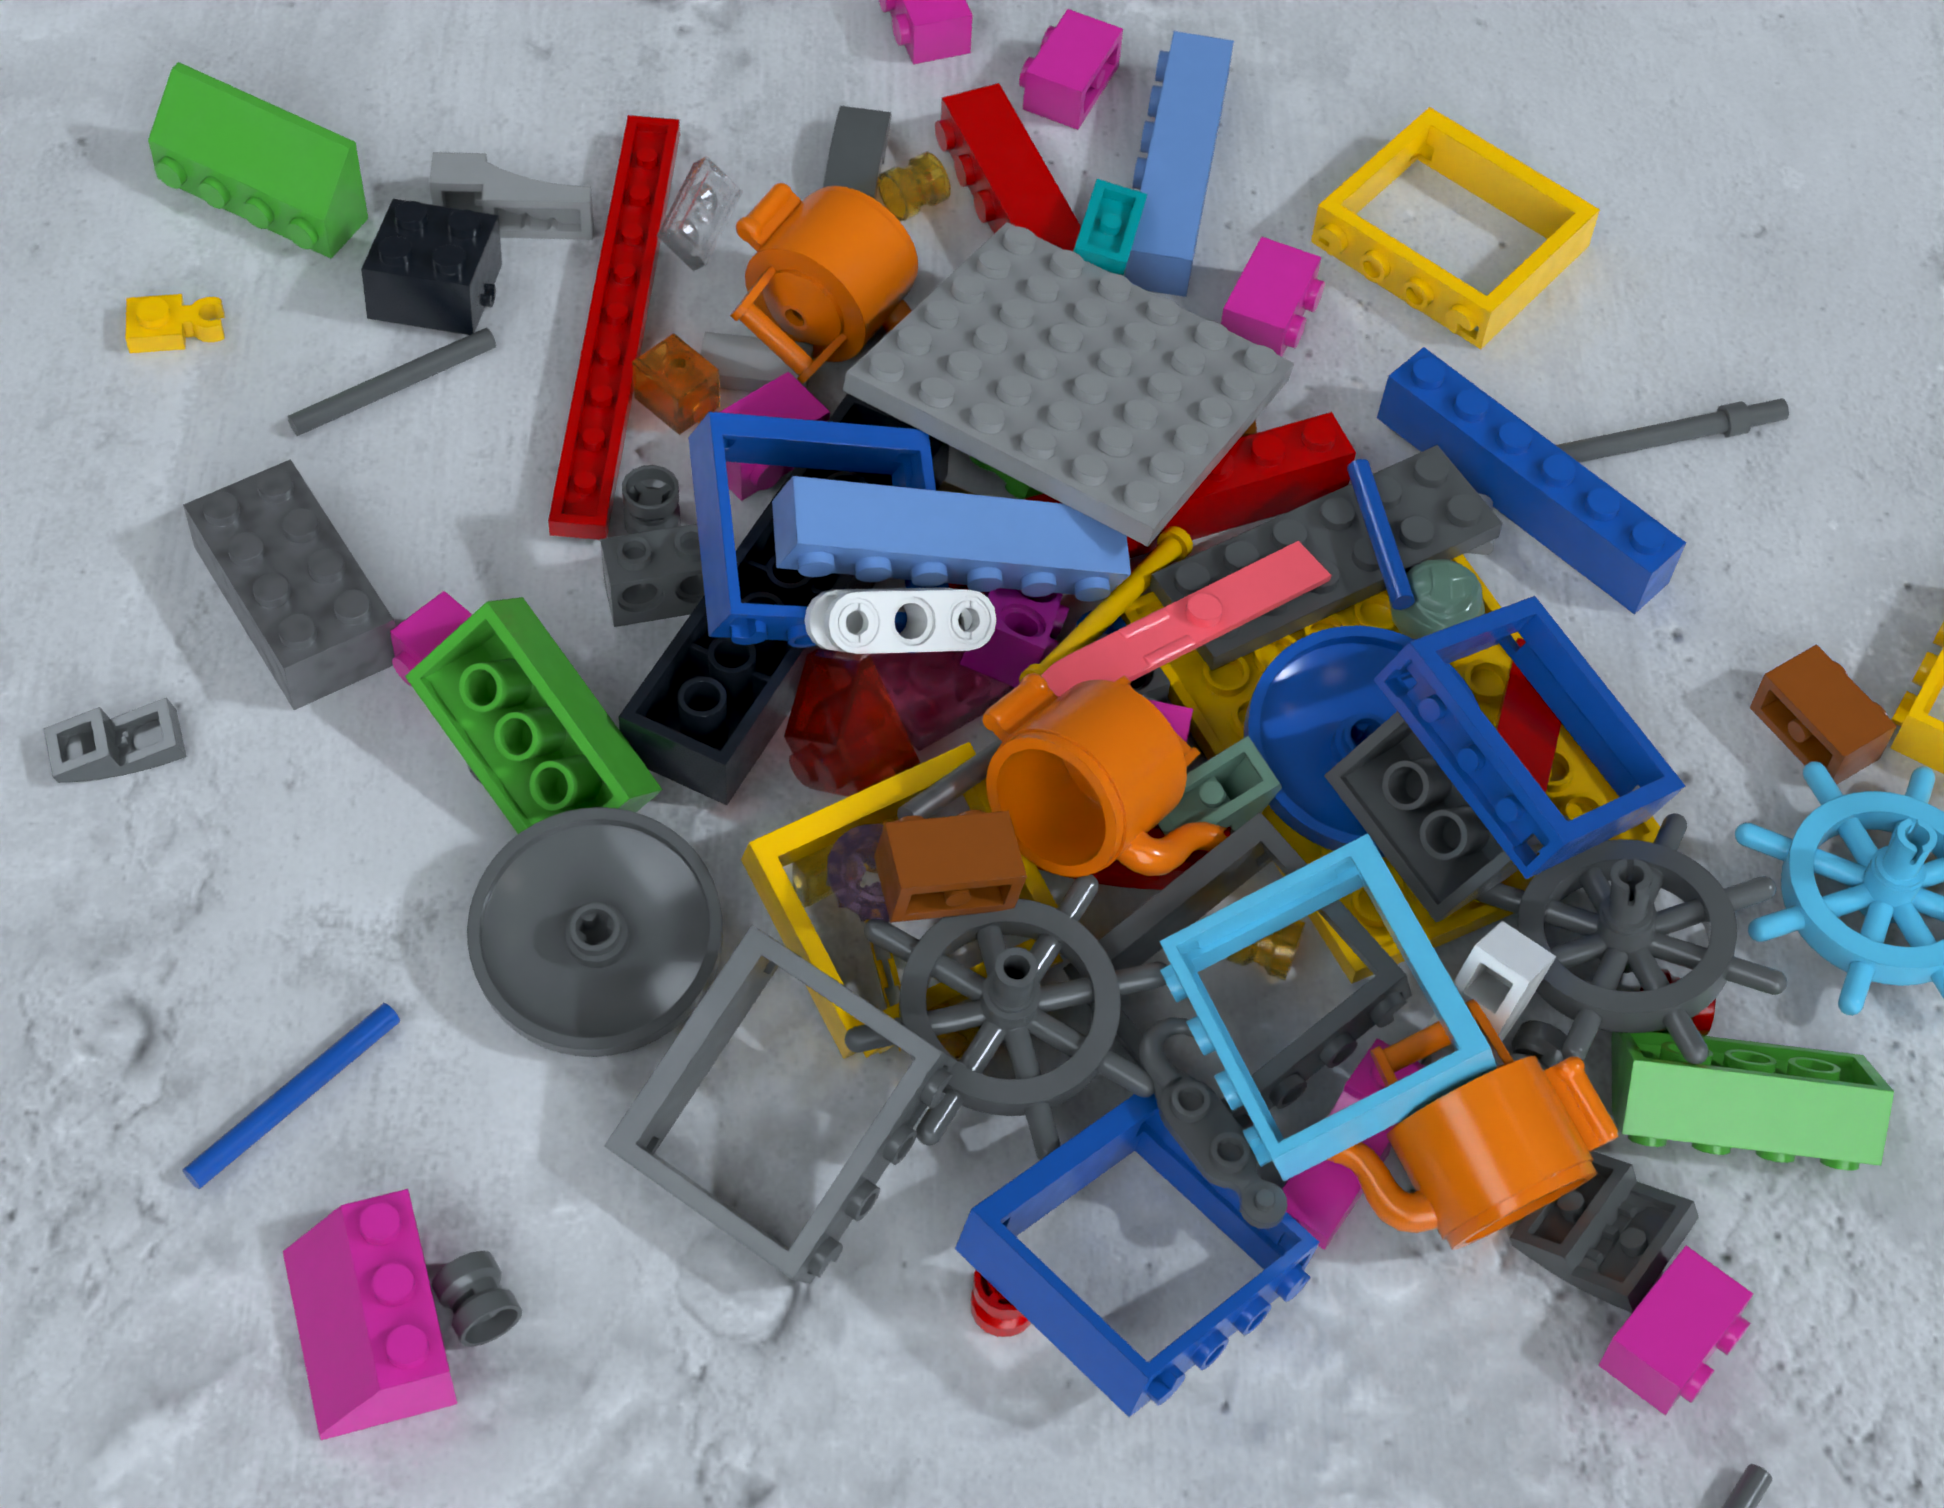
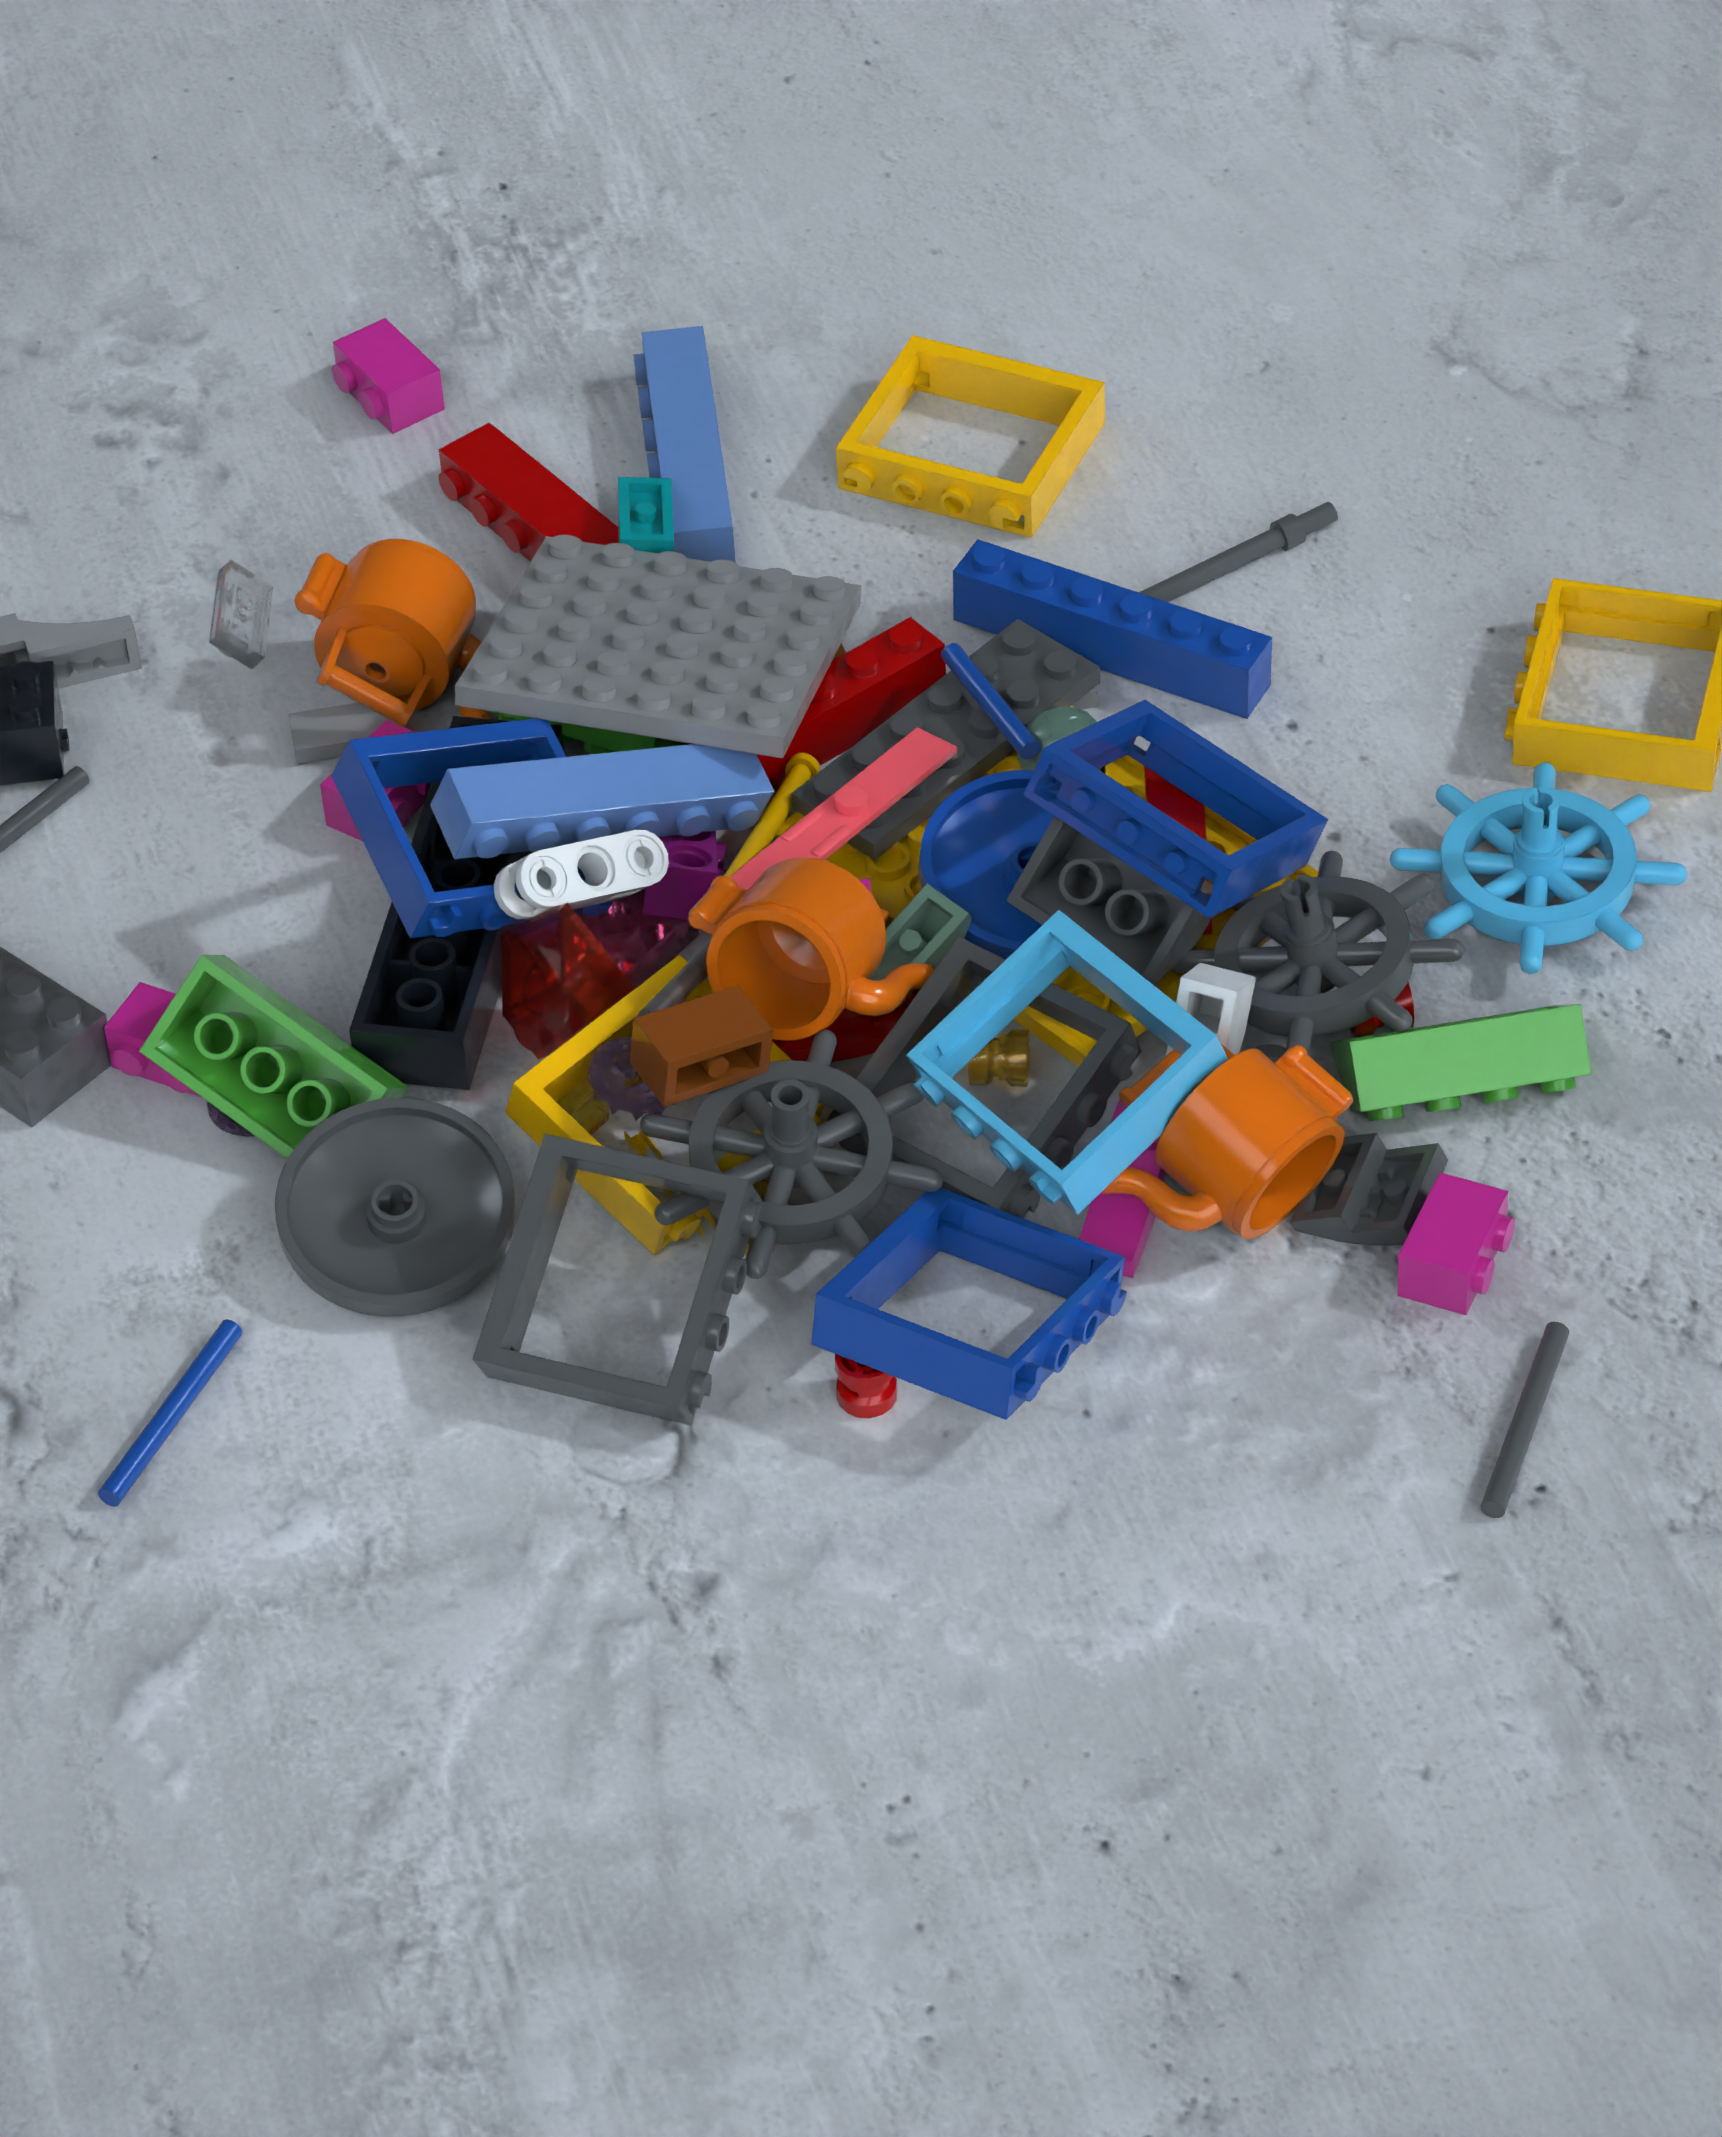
camera: 10 degrees left, 10 degrees down
(368, 1317) = (317, 1543): dark pink slope -> none
(476, 1298) = (410, 1509): dark grey wheel -> none
(614, 331) = (200, 731): red plate -> none
(650, 499) = (299, 868): dark grey wheel -> none
(652, 574) = (331, 919): dark grey brick -> none
(676, 383) = (280, 763): clear orange brick -> none
(858, 149) = (369, 513): dark grey slope -> none
(913, 186) = (445, 529): clear yellow wheel -> none
(1071, 68) = (551, 394): dark pink brick -> none
(1208, 1130) = (998, 1195): dark grey piece -> none
(1274, 295) = (822, 534): dark pink brick -> none
(1822, 714) = (1438, 746): dark orange brick -> none

